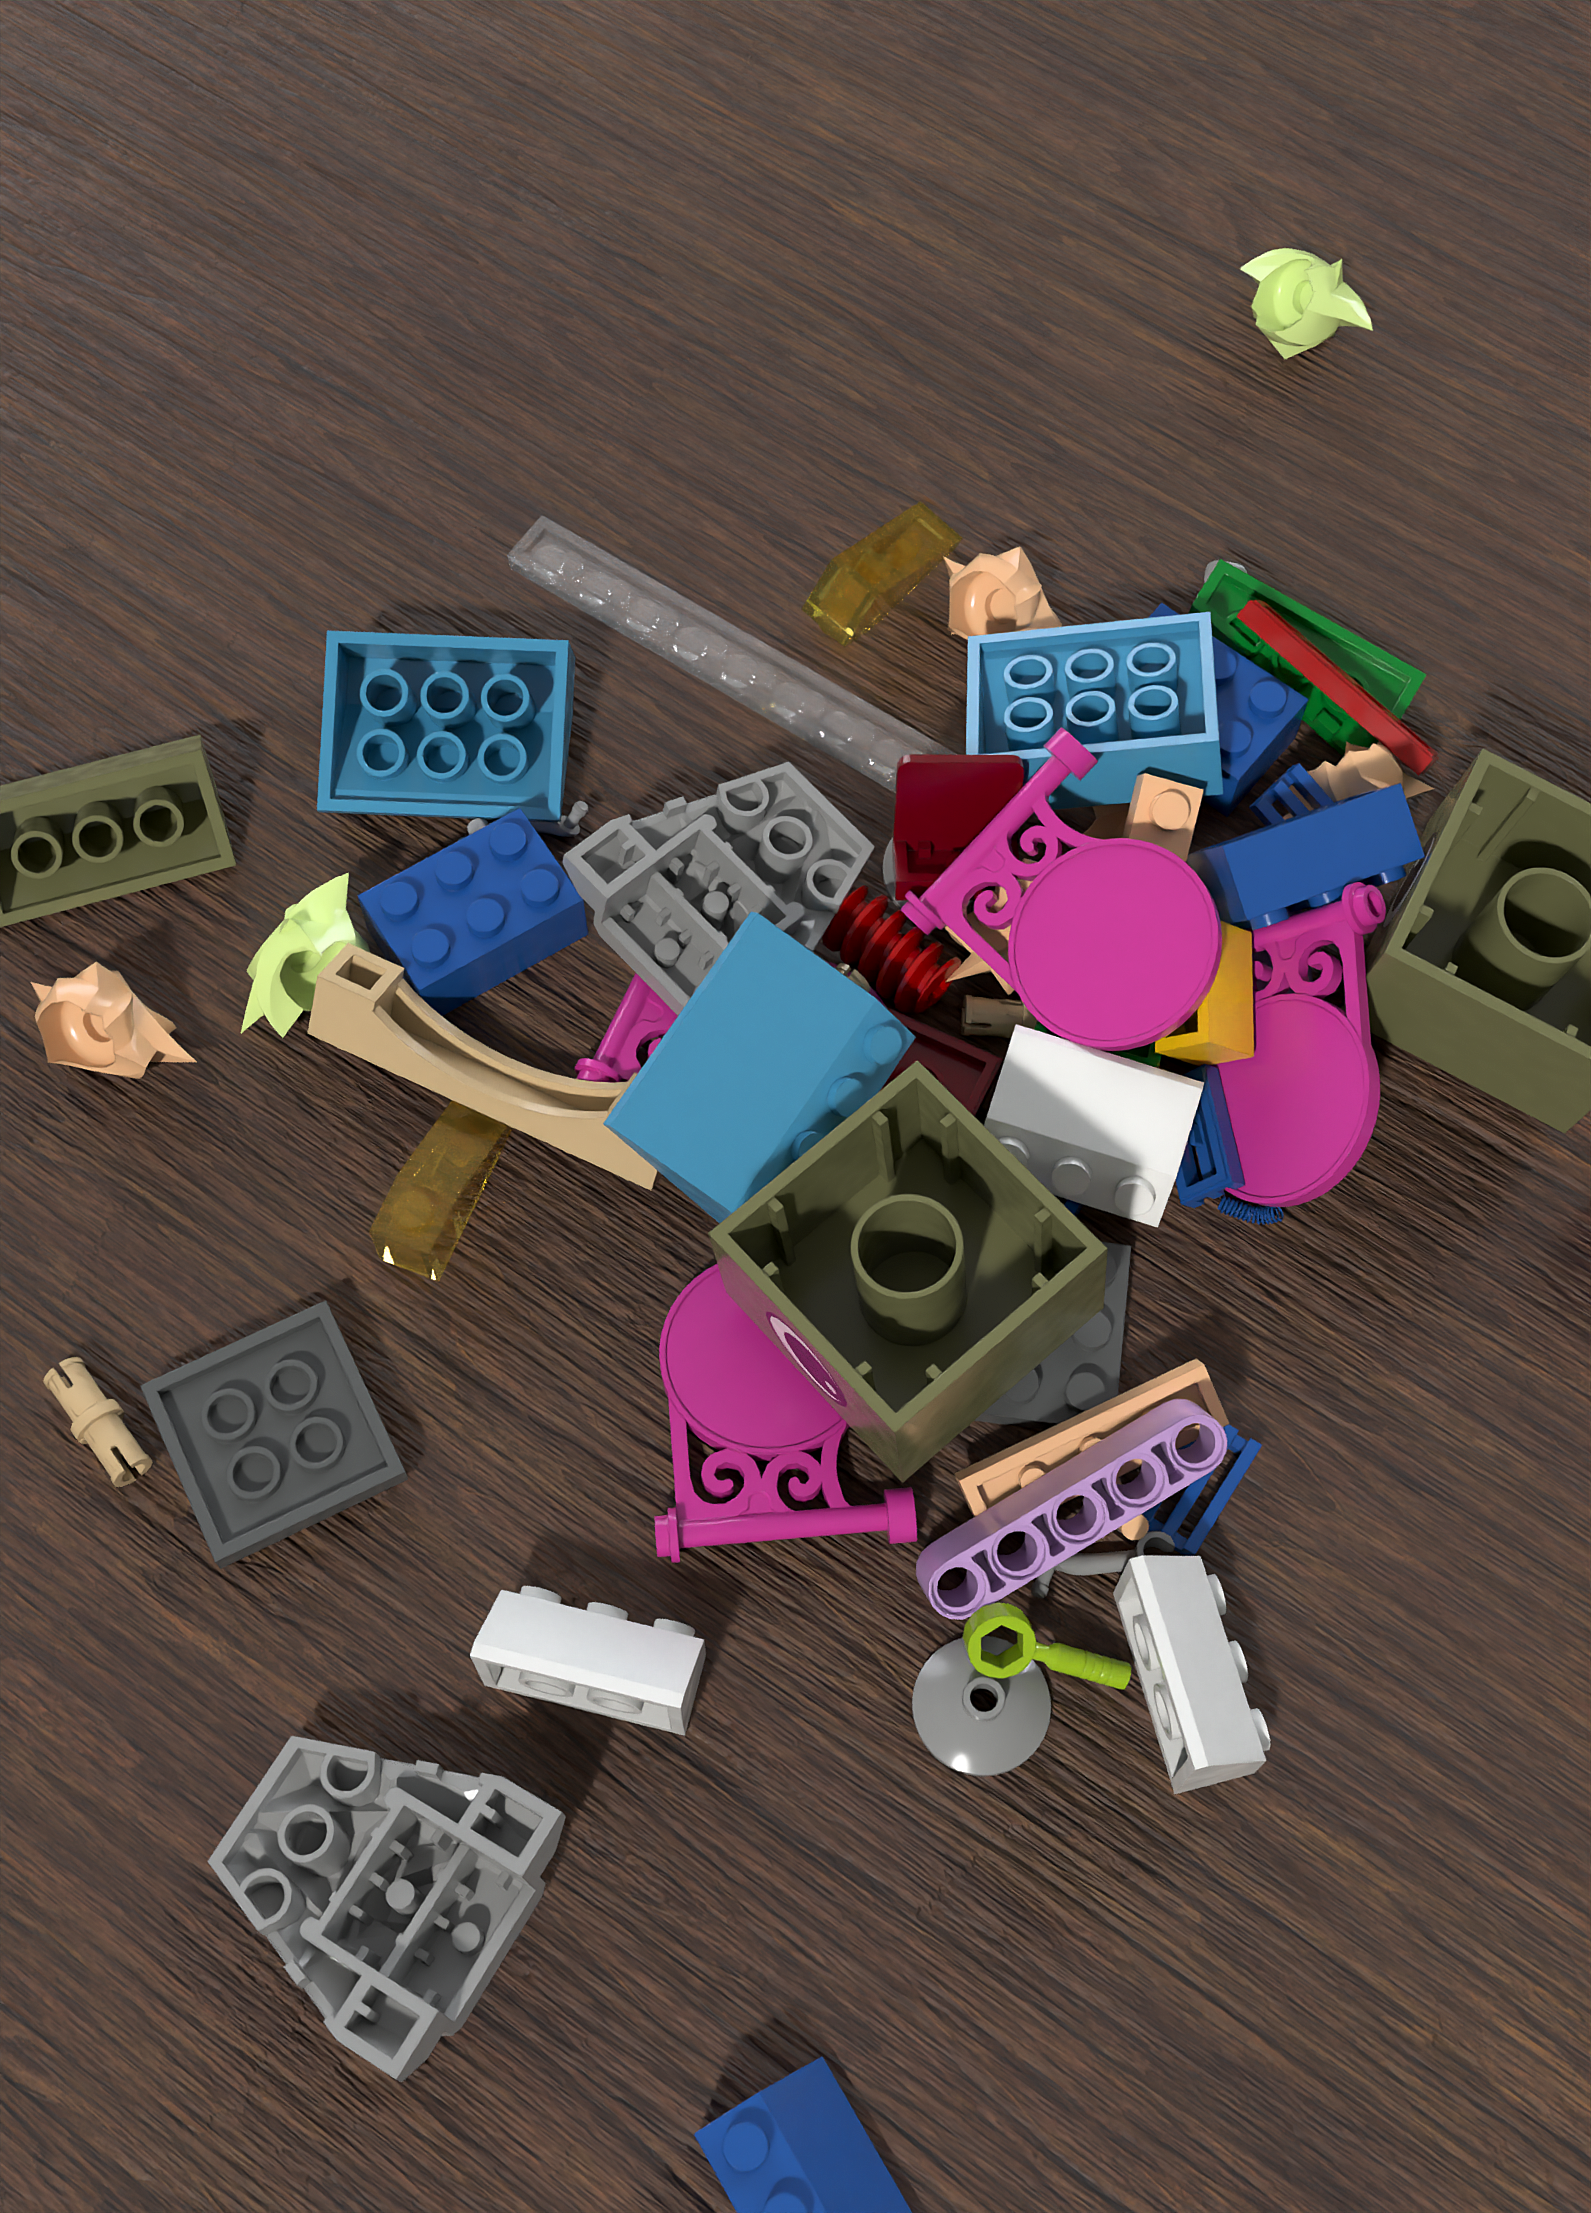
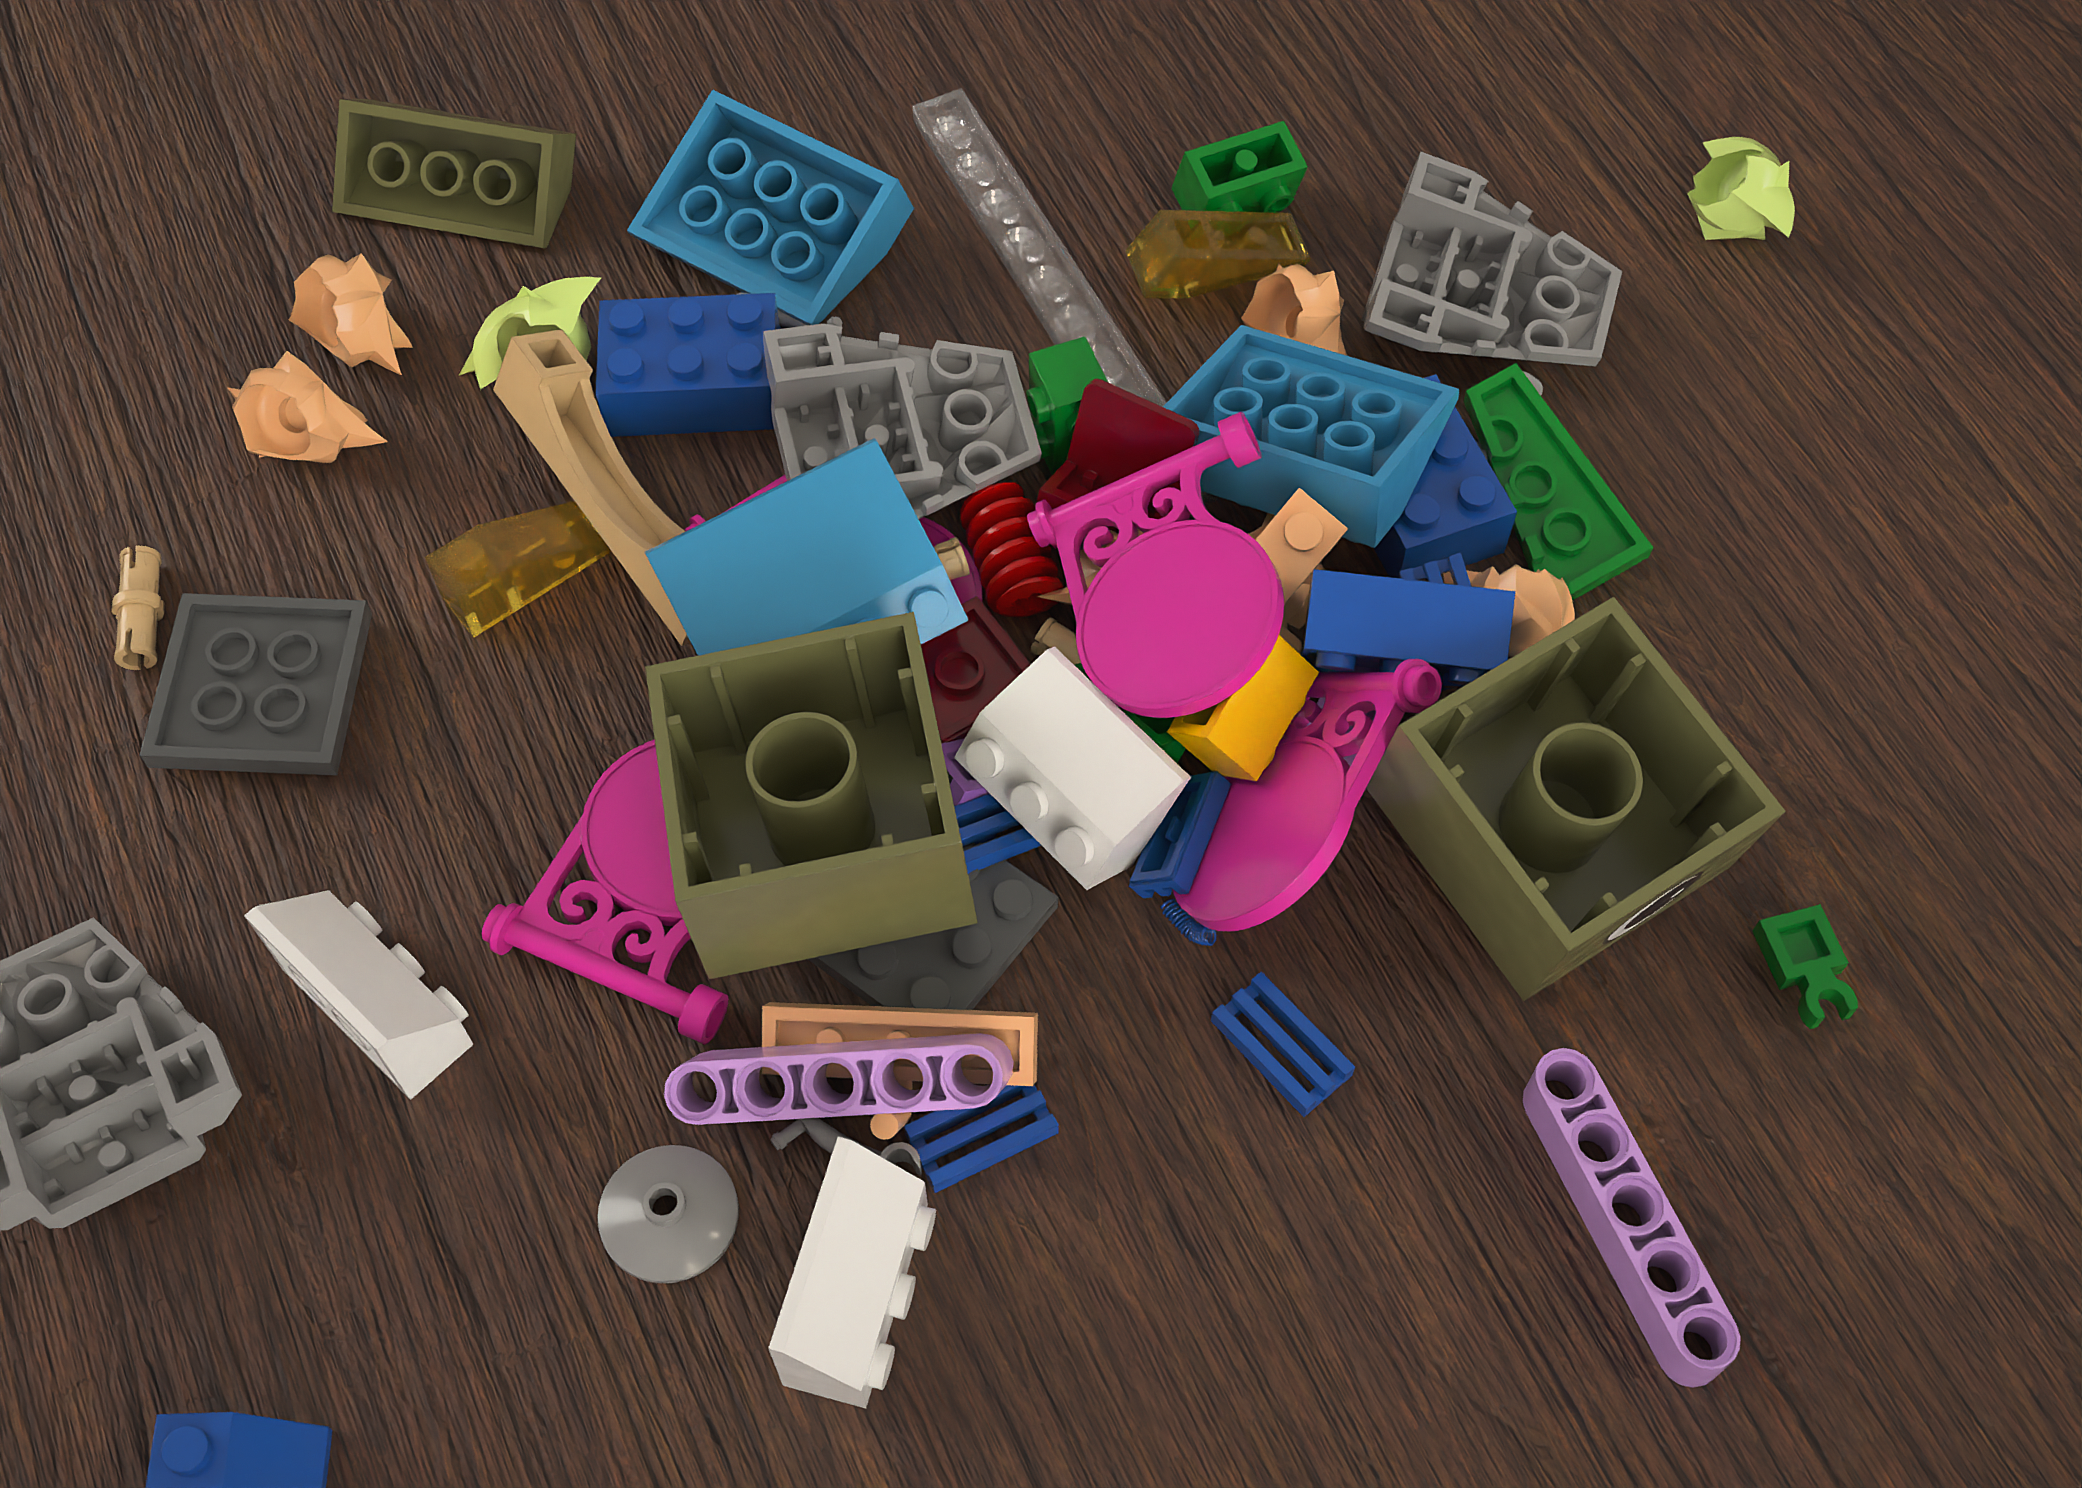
camera: 30 degrees right, 5 degrees down
(127, 1154) = (296, 415): none -> light nougat hair
(860, 780) = (1055, 394): none -> green brick
(863, 488) = (1242, 173): none -> green brick
(1016, 1658) = (750, 1202): lime piece -> none
(1134, 493) = (1484, 279): none -> light grey wedge
(1338, 686) = (1550, 506): red tile -> none
(1399, 1252) = (1300, 1026): none -> blue tile

